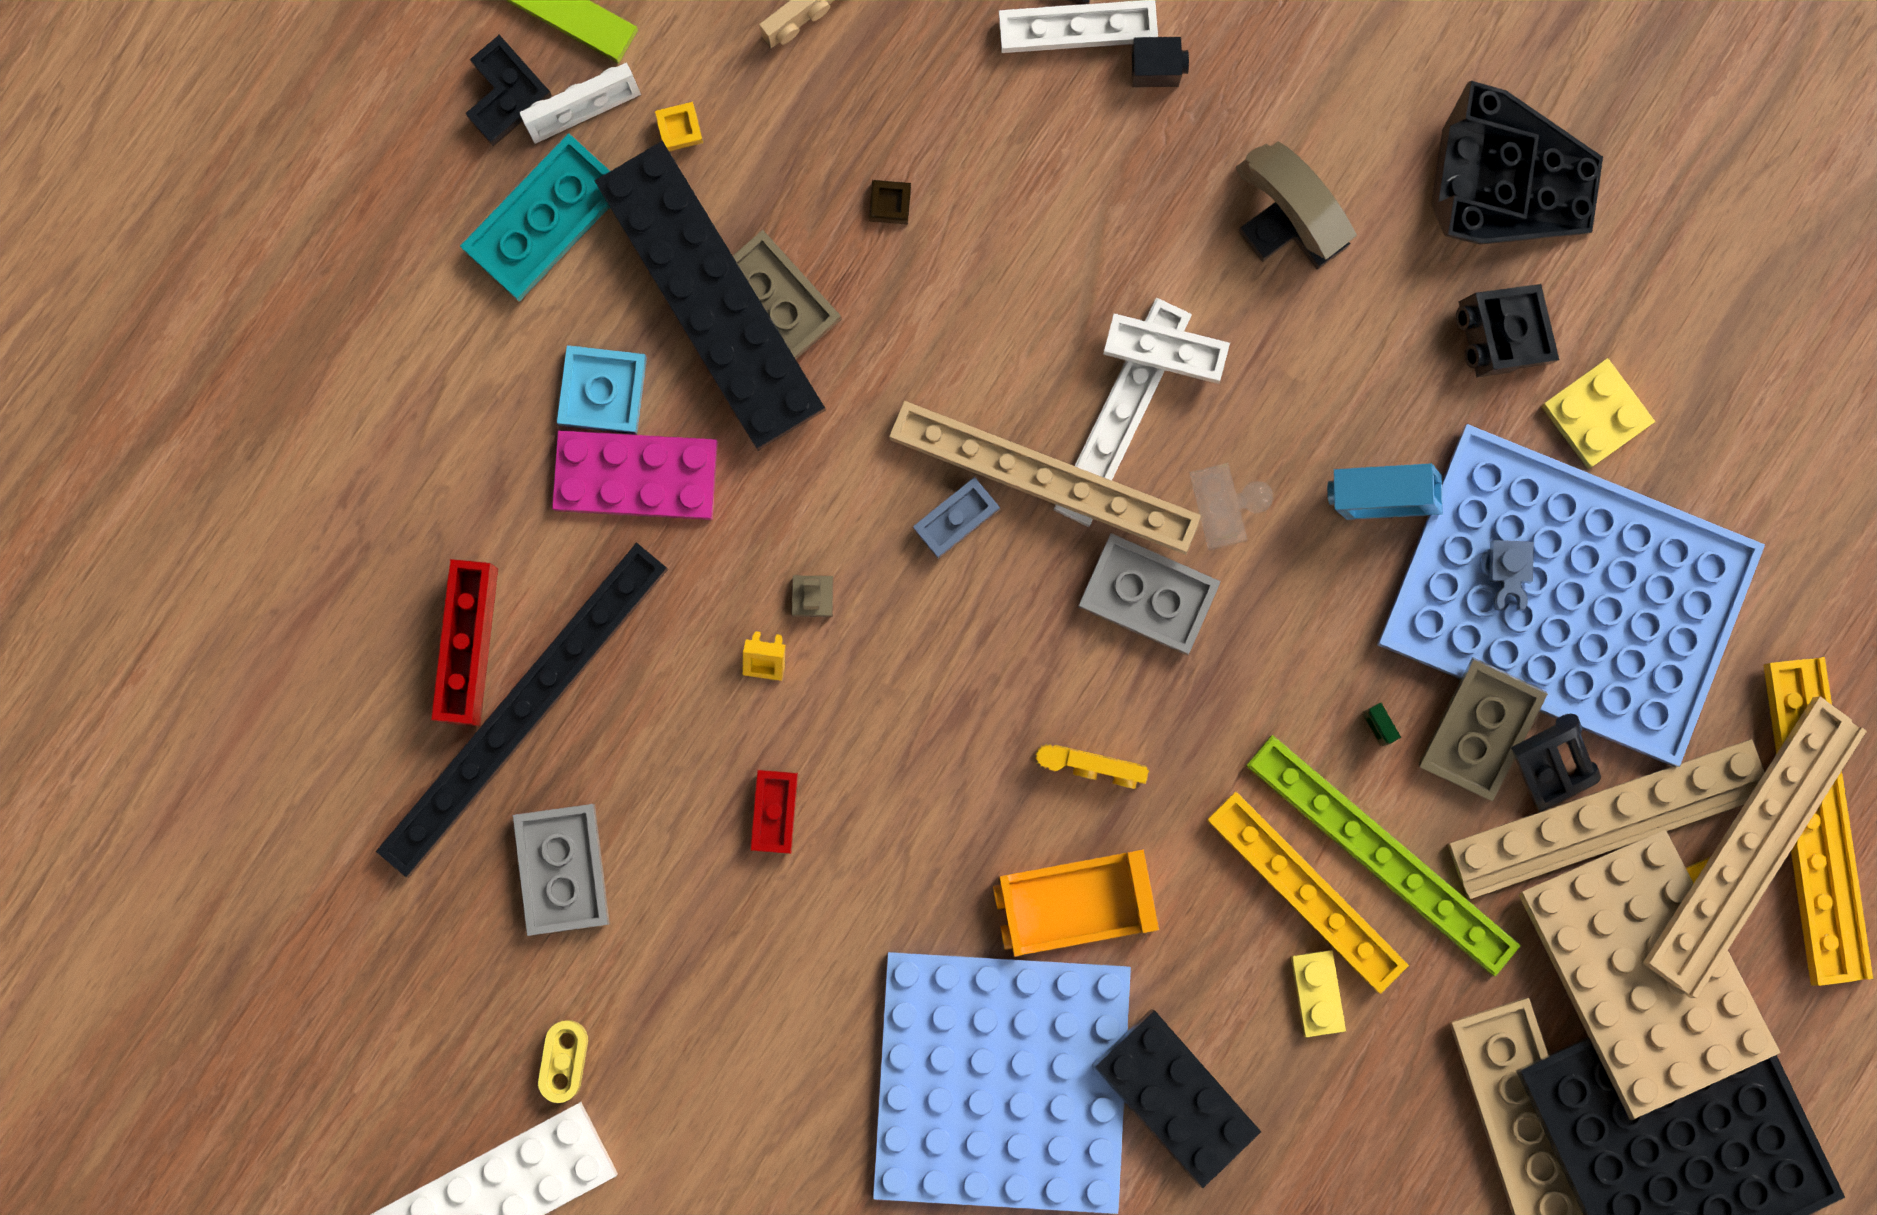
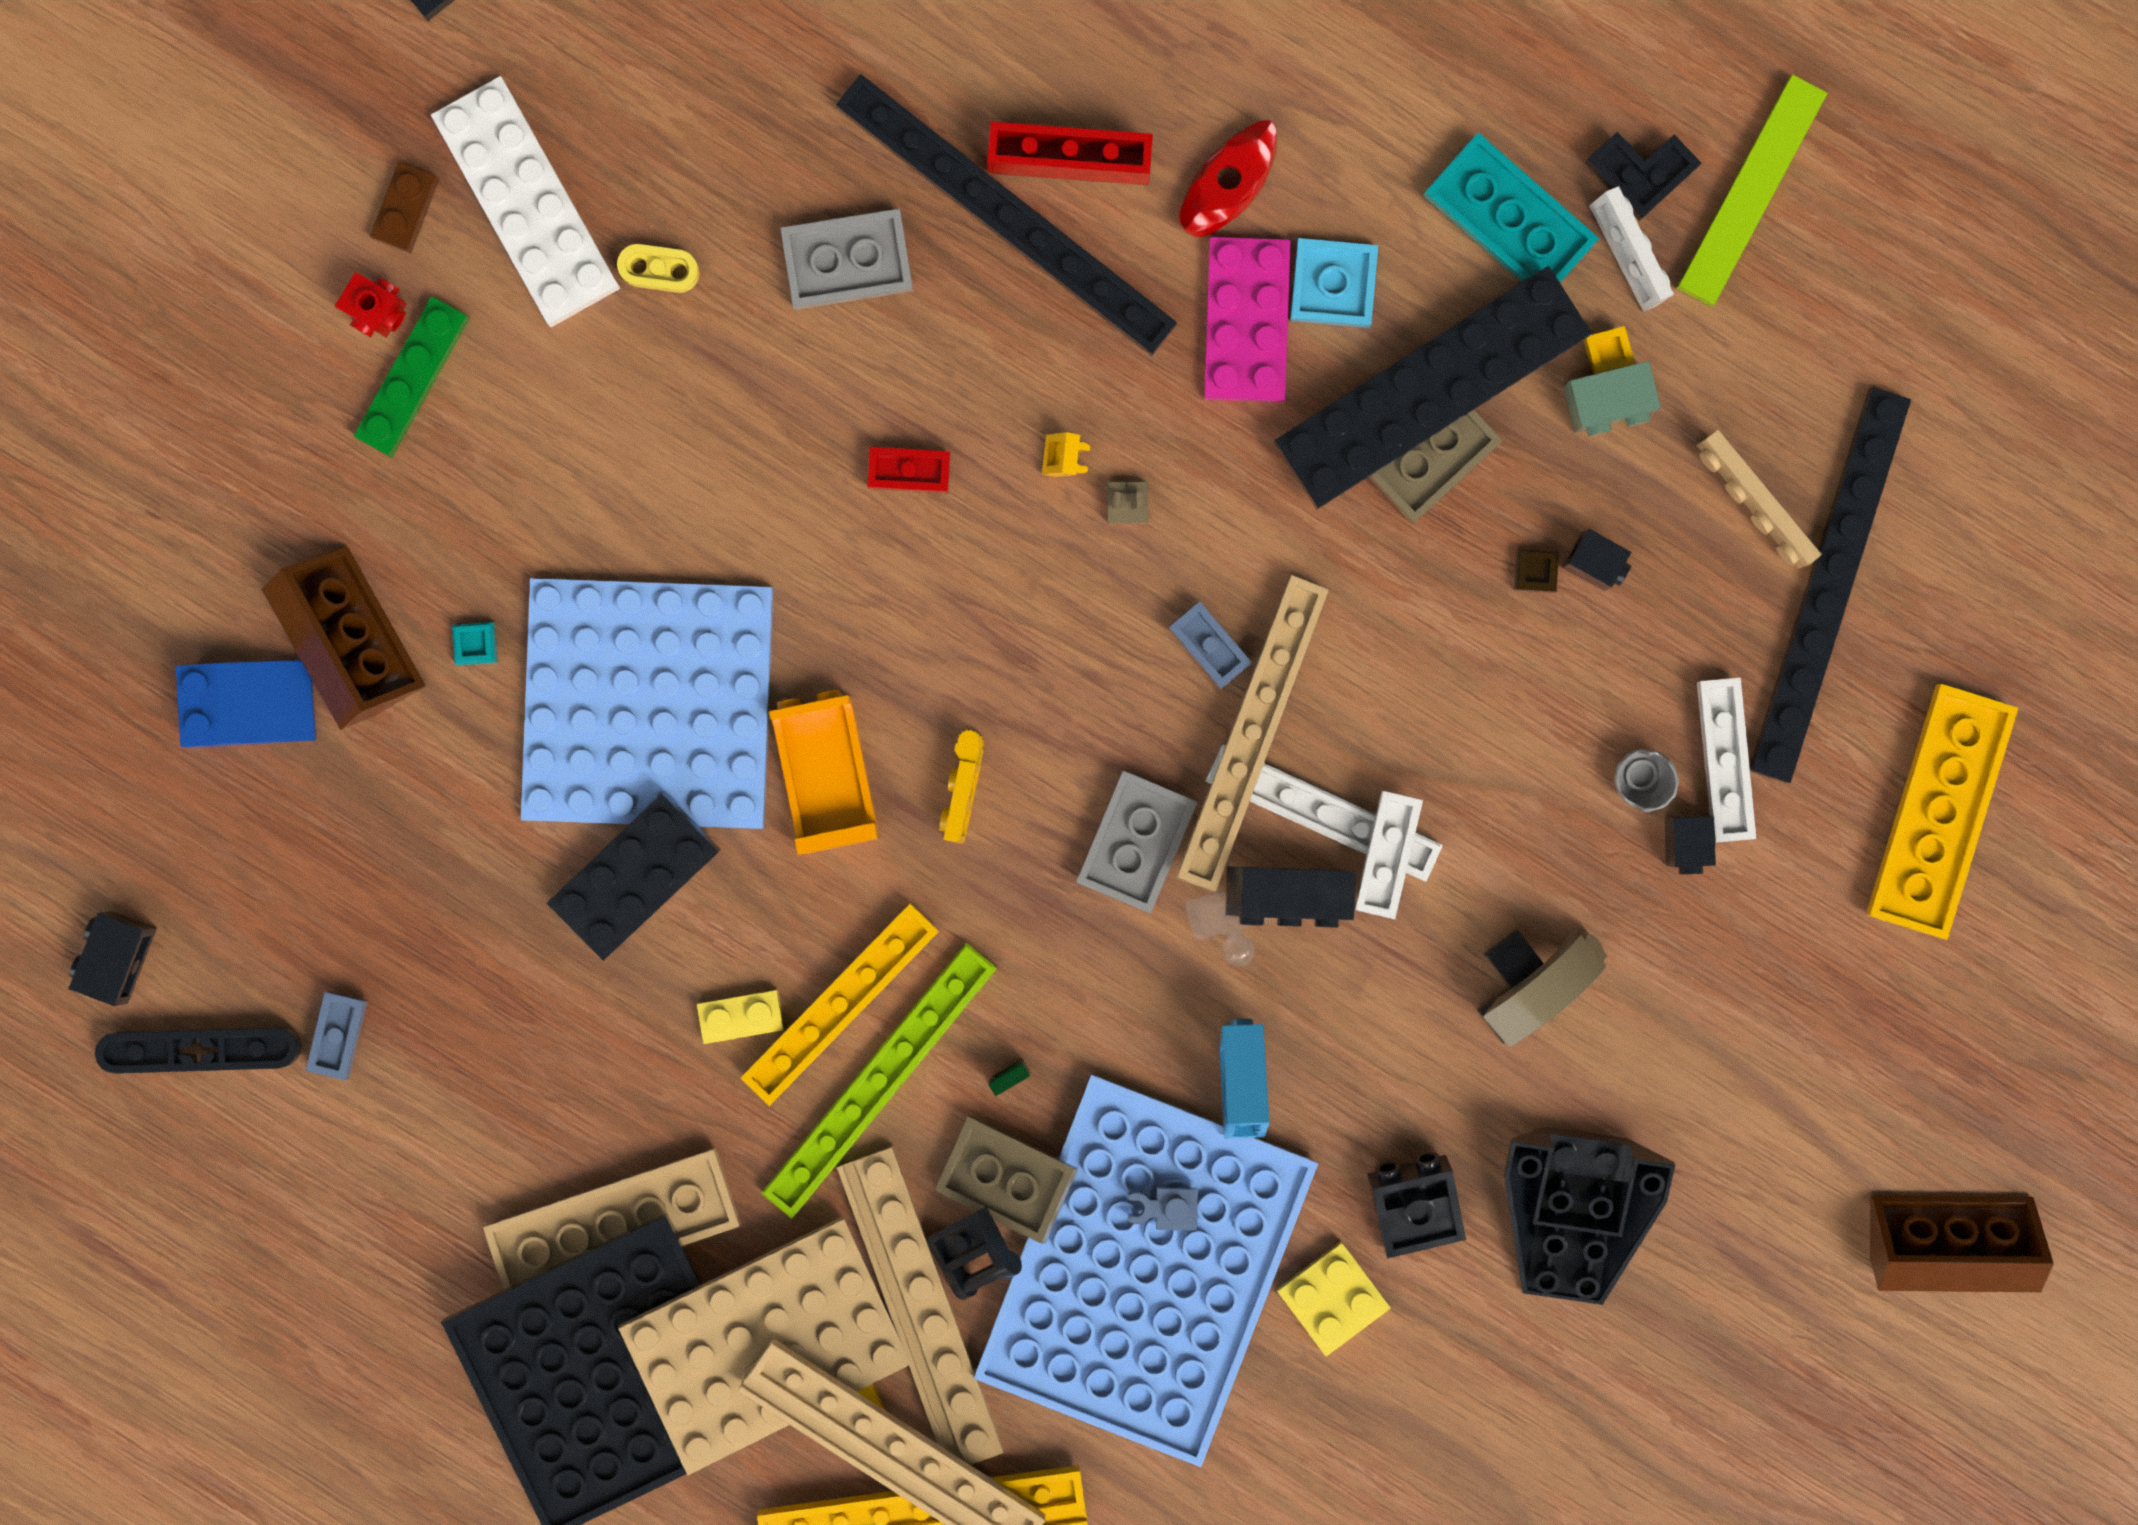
camera: 90 degrees right, 5 degrees up
(522, 506) = (1208, 204): none -> red piece
(724, 124) = (1612, 398): none -> sand green brick
(882, 142) = (1598, 560): none -> black brick
(1096, 101) = (1646, 779): none -> light grey hair
(1205, 443) = (1290, 895): none -> black brick

